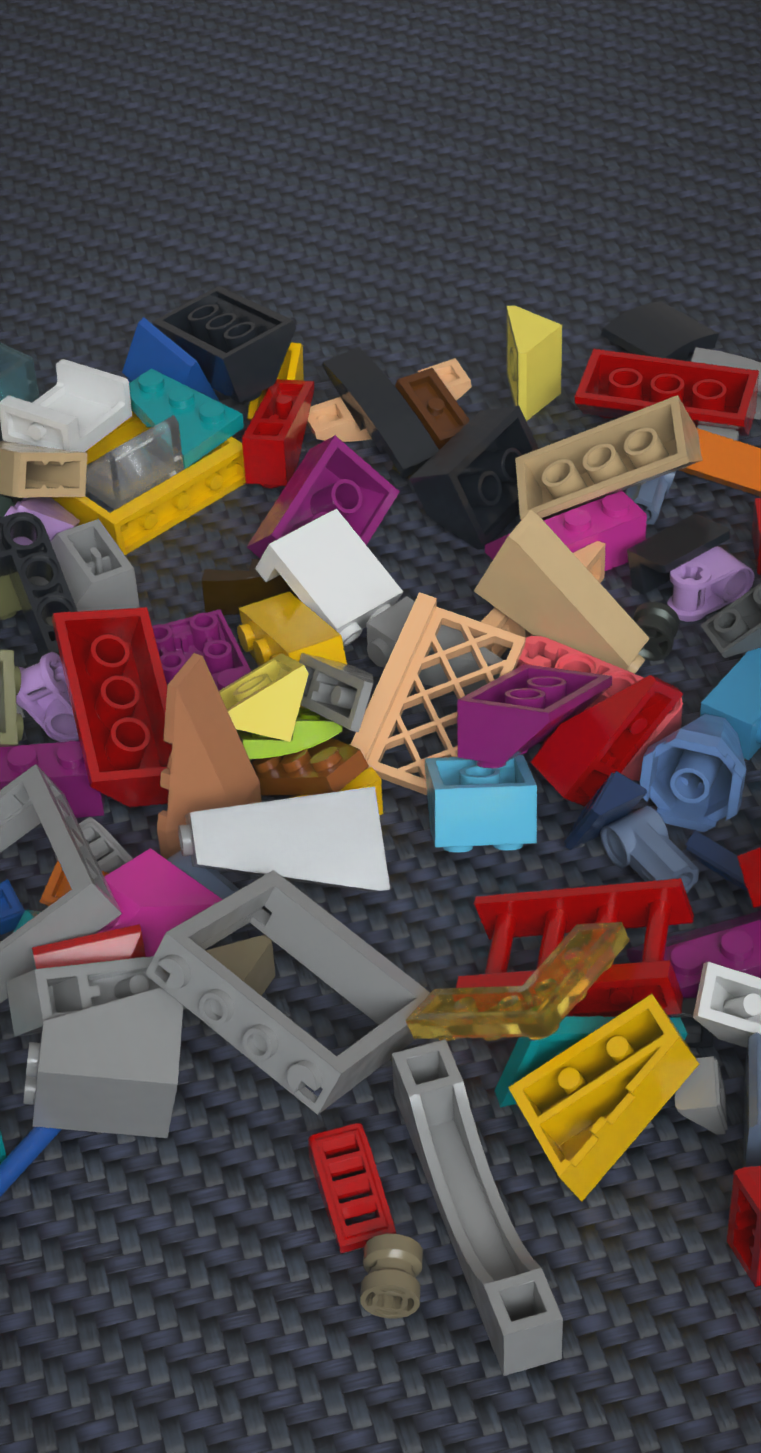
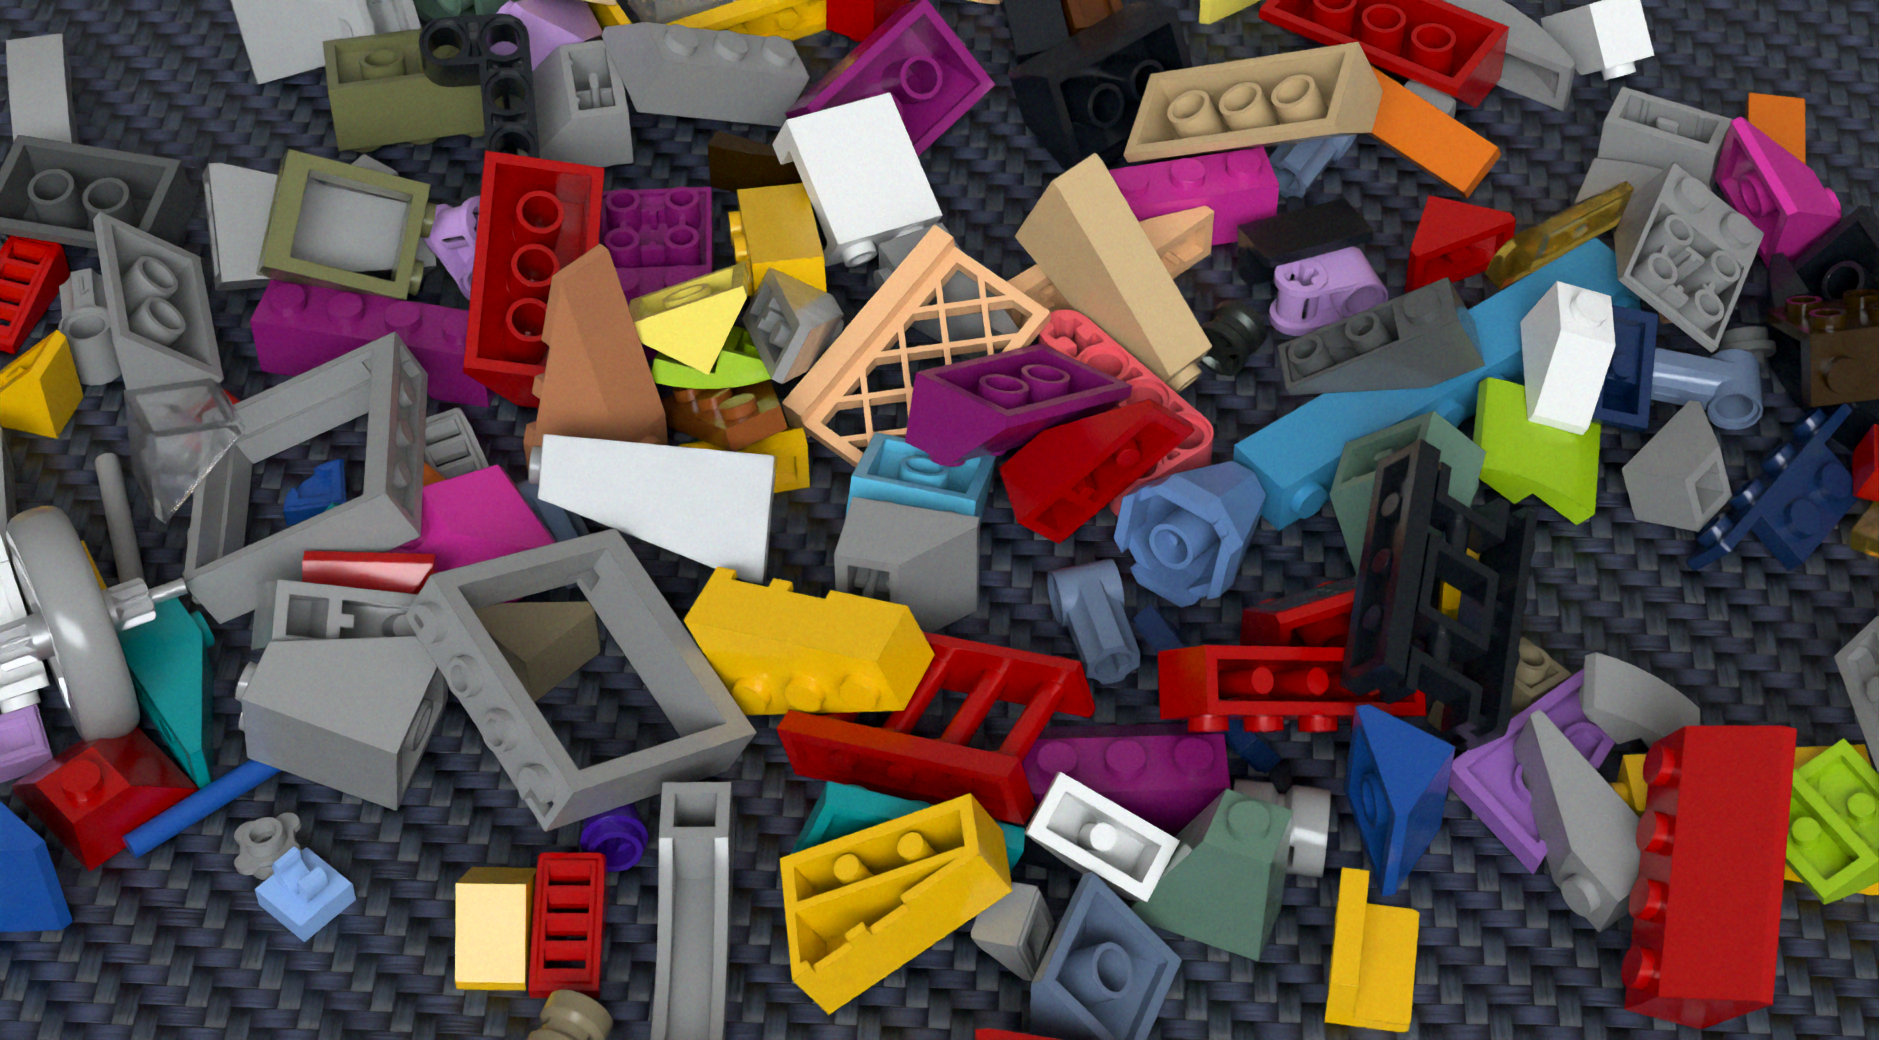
camera: 15 degrees right, 5 degrees up
(79, 1191) = (264, 843): none -> light grey plate
(123, 1221) = (304, 892): none -> light blue tile
(178, 527) = (706, 72): none -> light grey slope
(293, 1205) = (494, 928): none -> yellow slope
(362, 1106) = (617, 835): none -> dark purple cone
(459, 926) = (805, 650): none -> yellow wedge
(499, 847) = (911, 559): none -> light grey slope
(526, 1009) = (830, 773): clear yellow plate -> none
(609, 803) = (1057, 545): dark blue slope -> none

